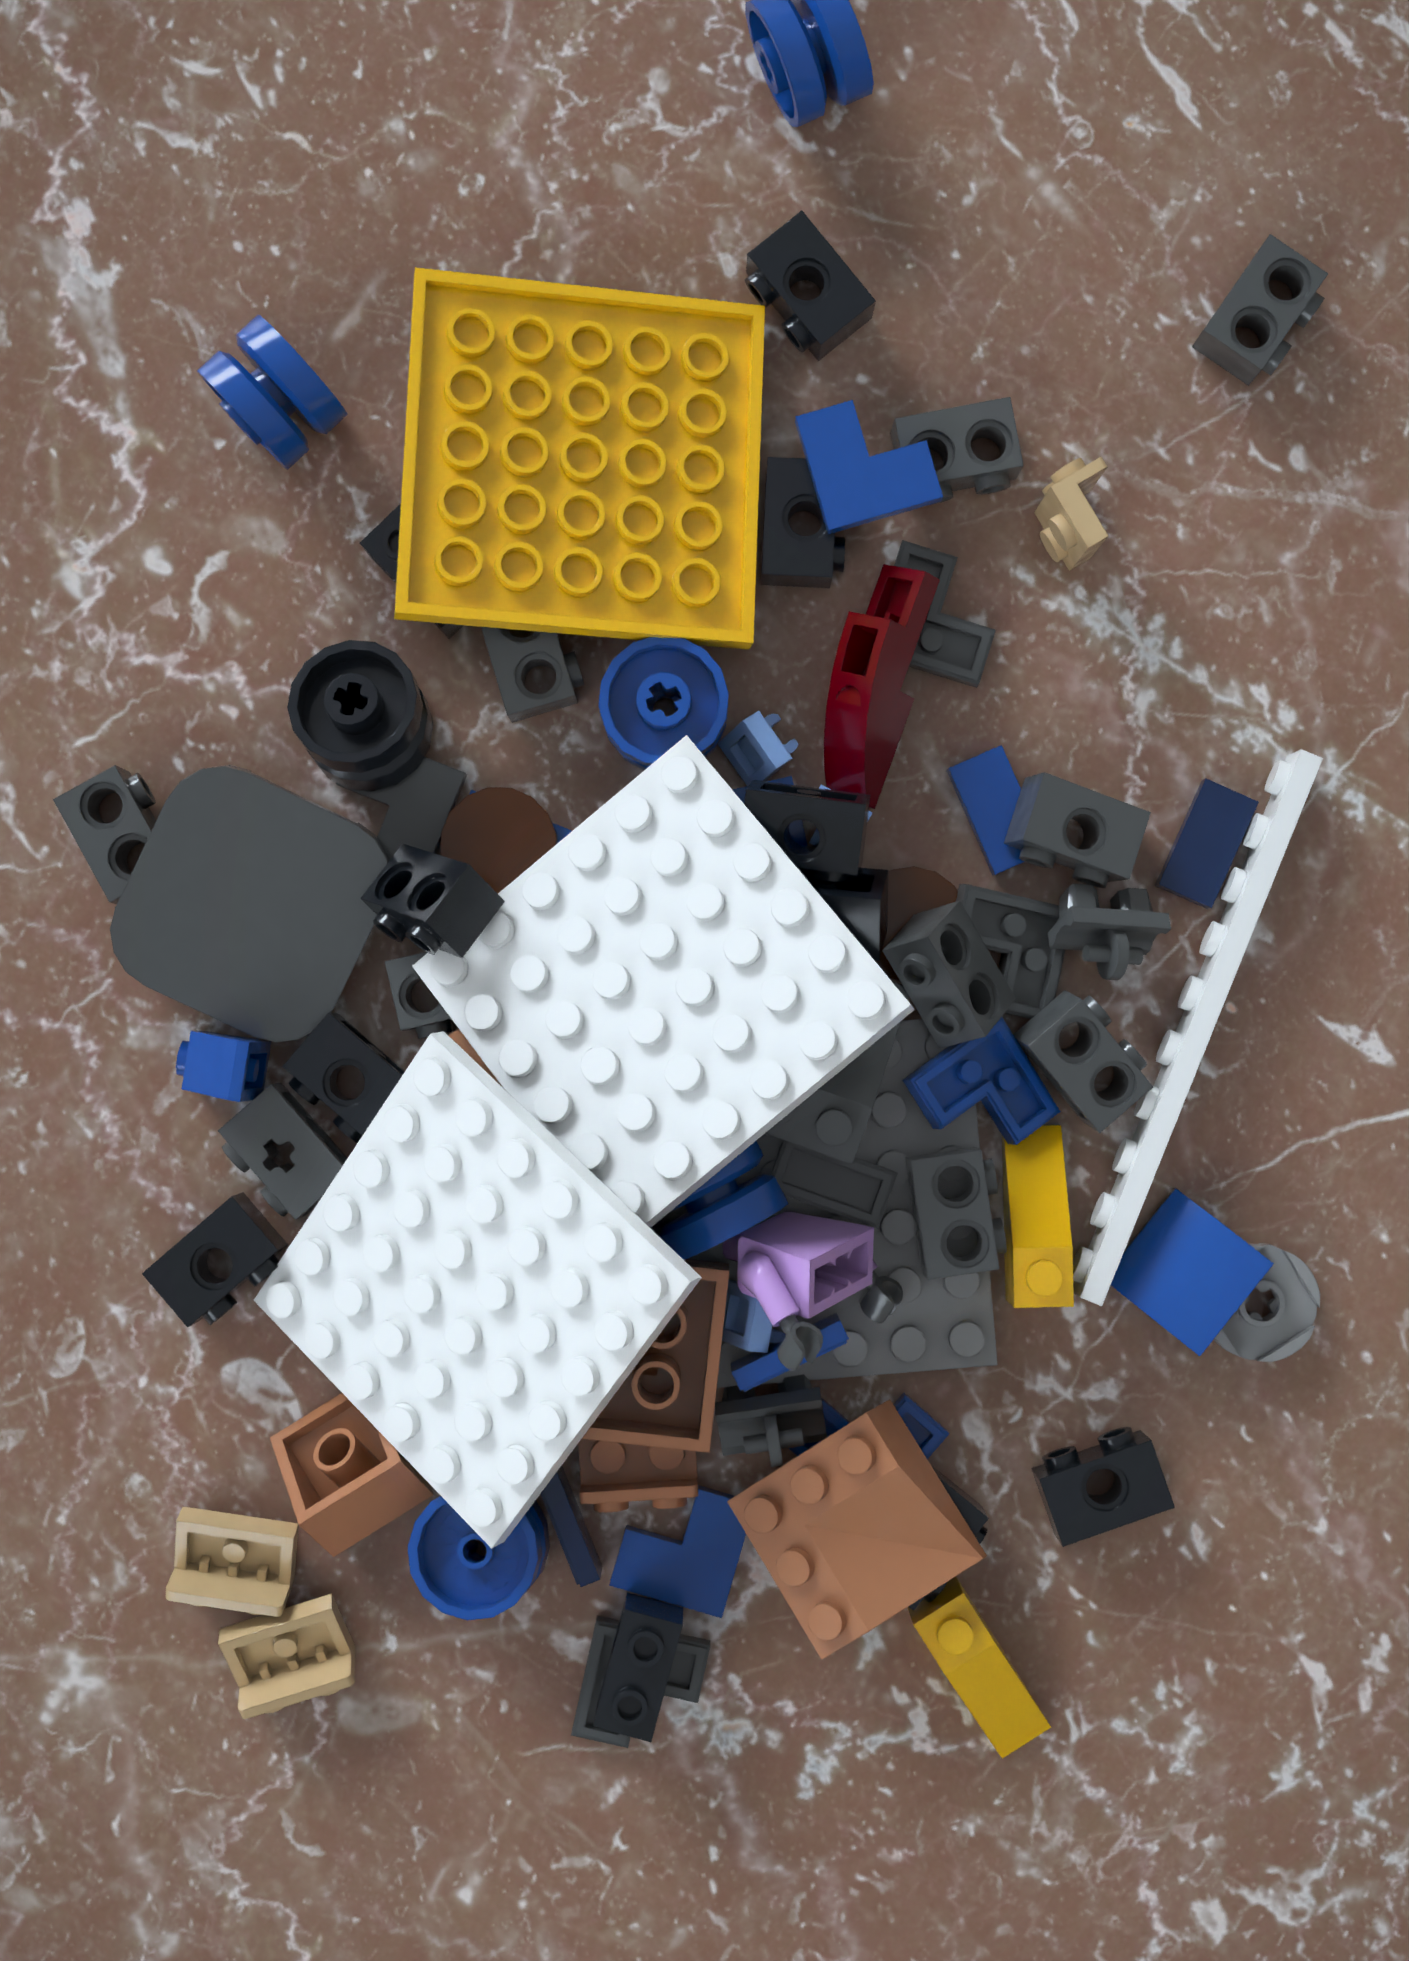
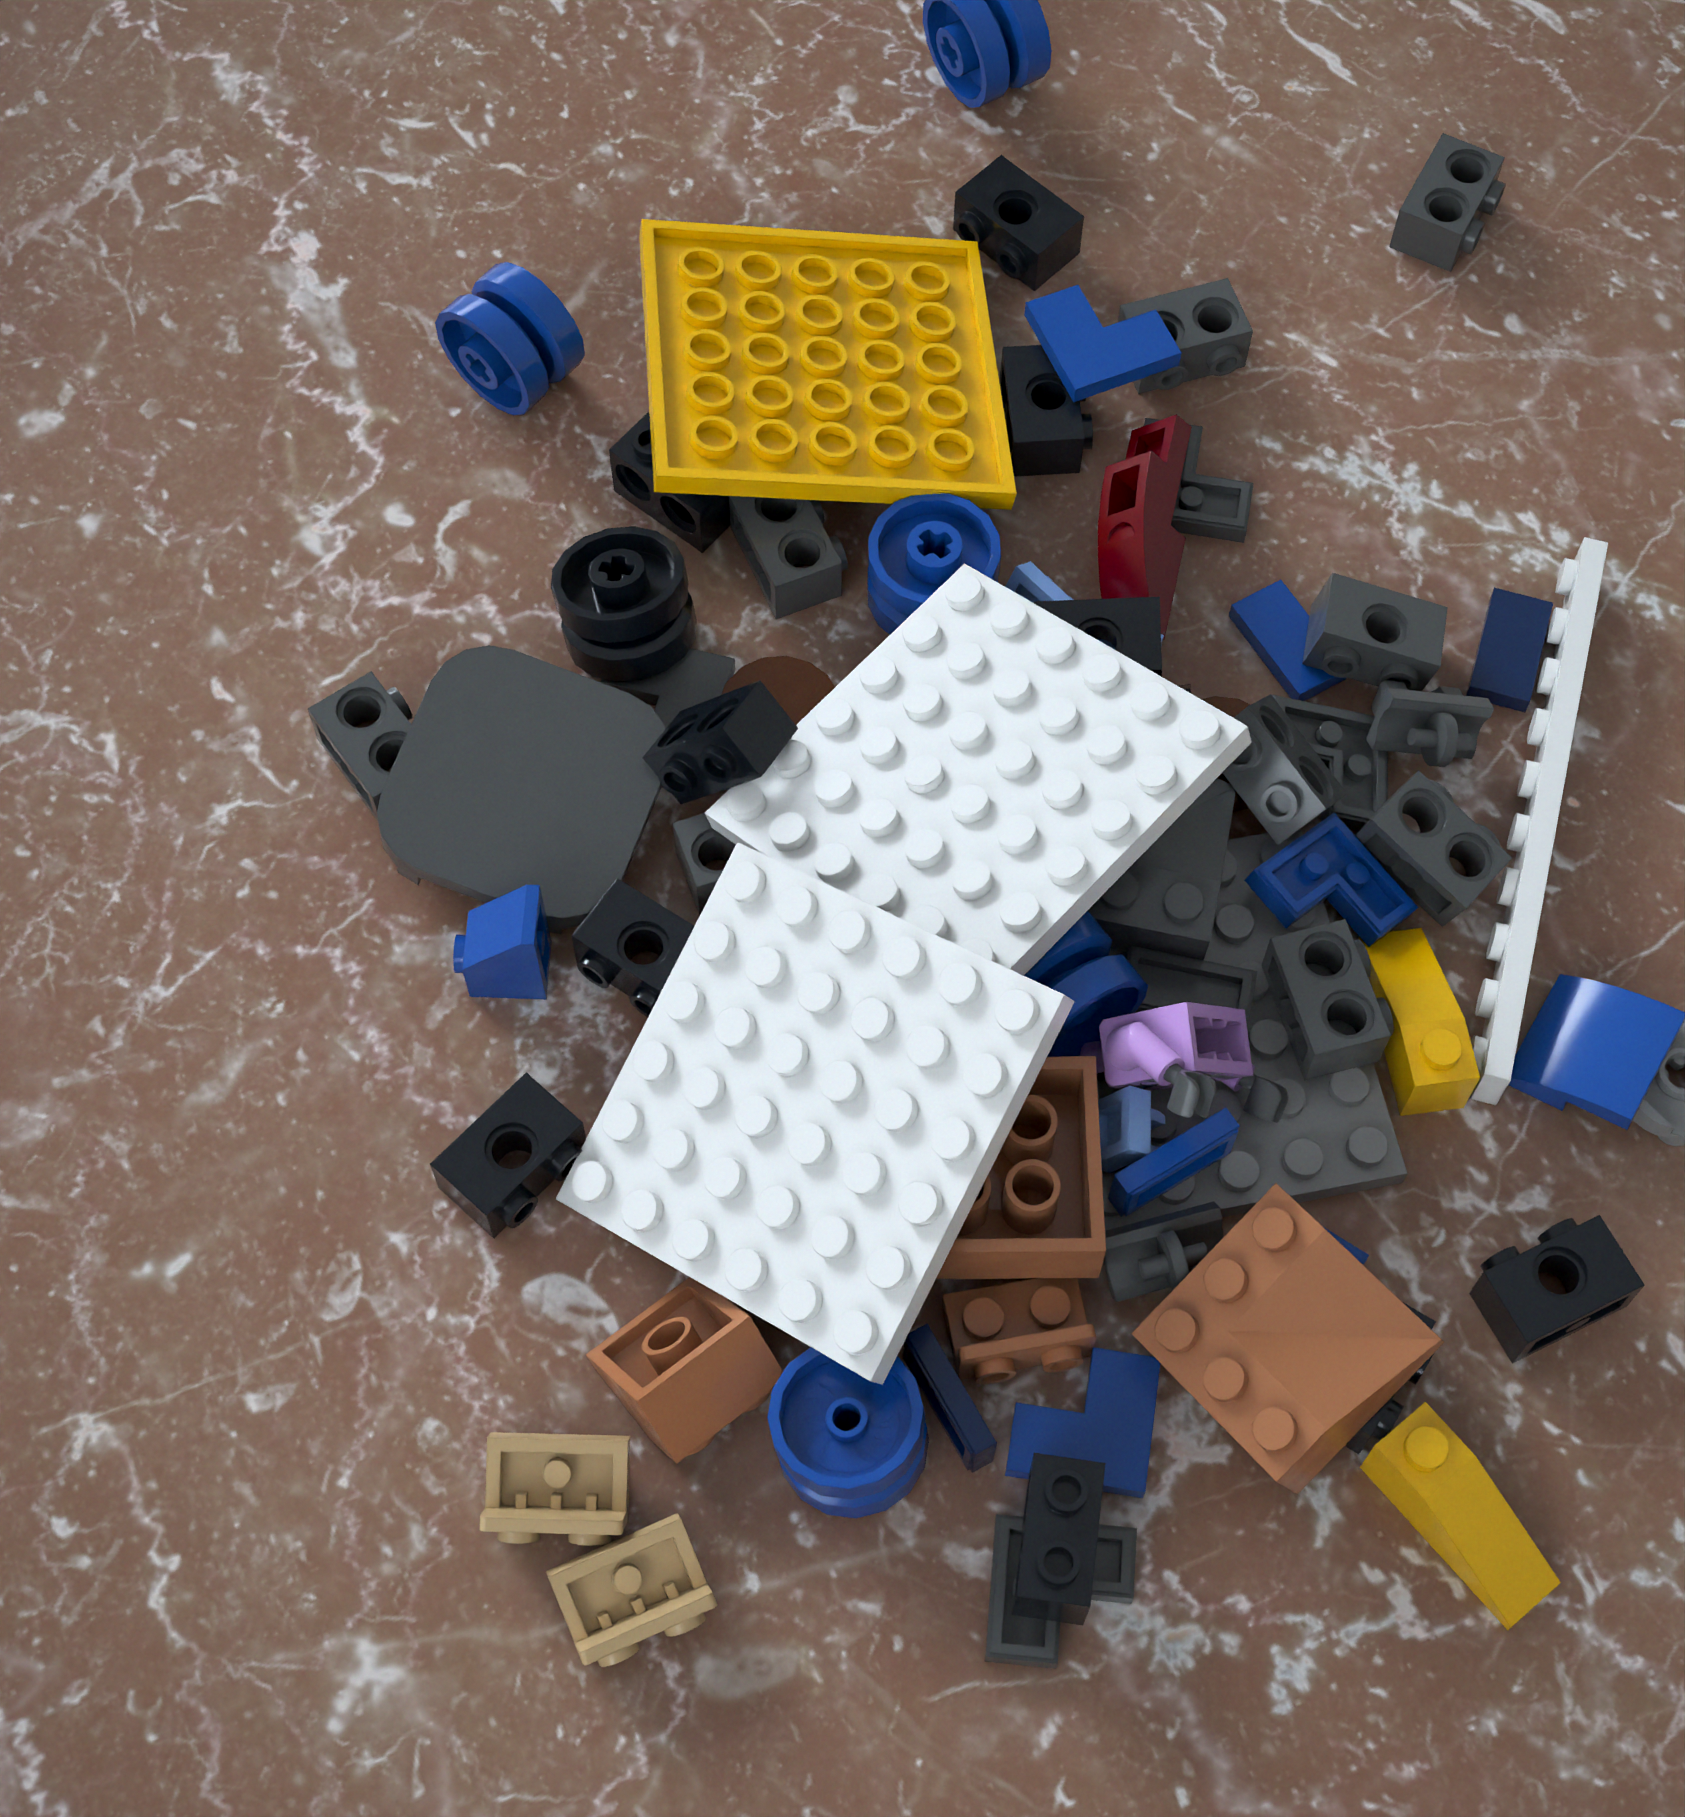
camera: 10 degrees left, 25 degrees down
(281, 1119) = (568, 1004): dark grey brick -> none
(1068, 520) = (1310, 365): tan bracket -> none

